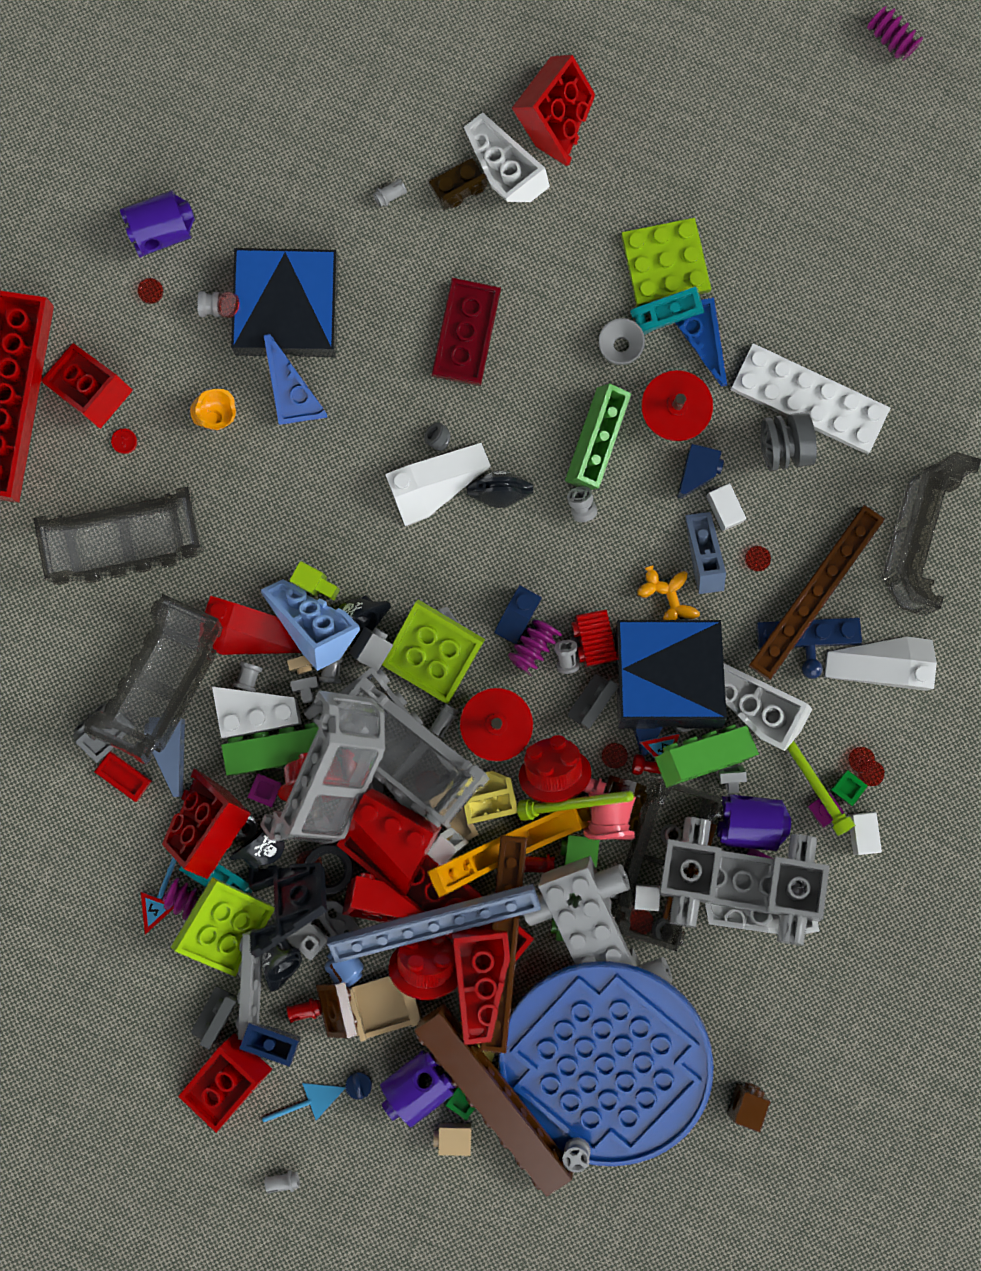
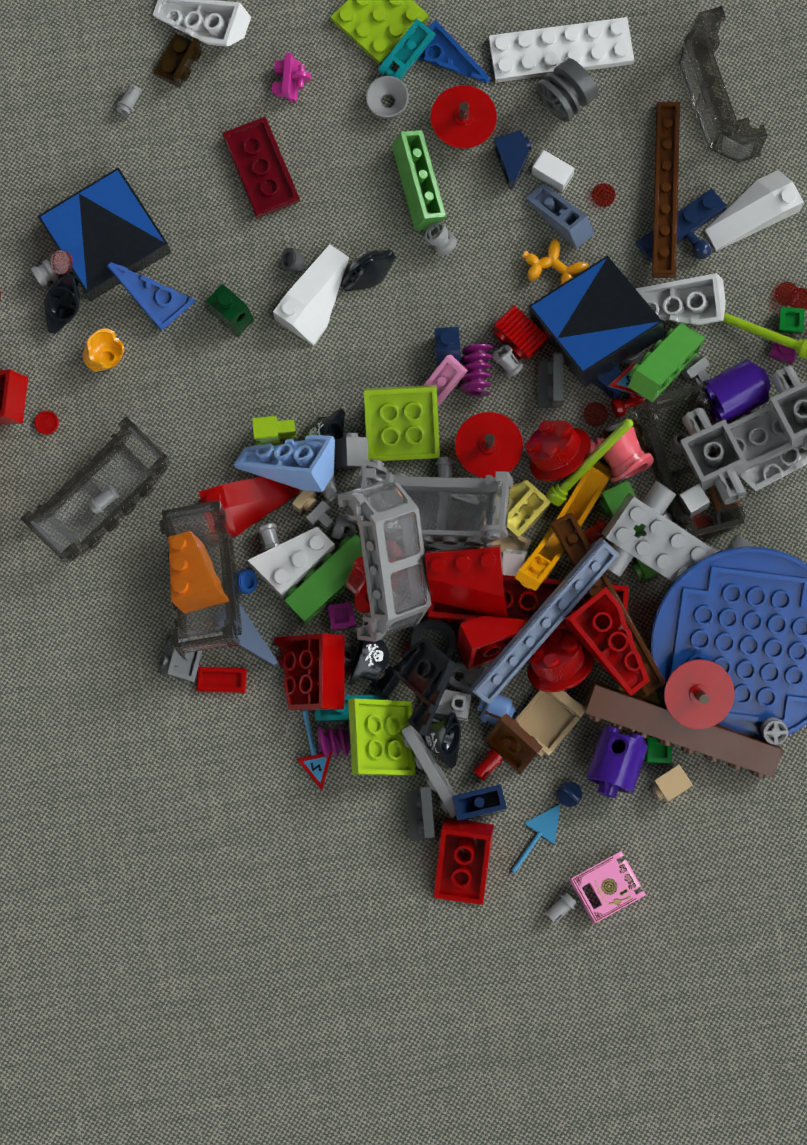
camera: 25 degrees left, 5 degrees down
(123, 546) = (103, 500): none -> light grey pin
(151, 669) = (192, 574): none -> orange wedge
(202, 702) = (246, 581): none -> blue tile
(205, 342) = (62, 303): none -> black hat
(340, 1192) = (612, 885): none -> bright pink container
(349, 446) = (228, 308): none -> dark green torso
(499, 636) = (446, 377): none -> bright pink plate
(527, 1084) = (699, 694): none -> red piece
(549, 267) = (293, 77): none -> dark pink hips

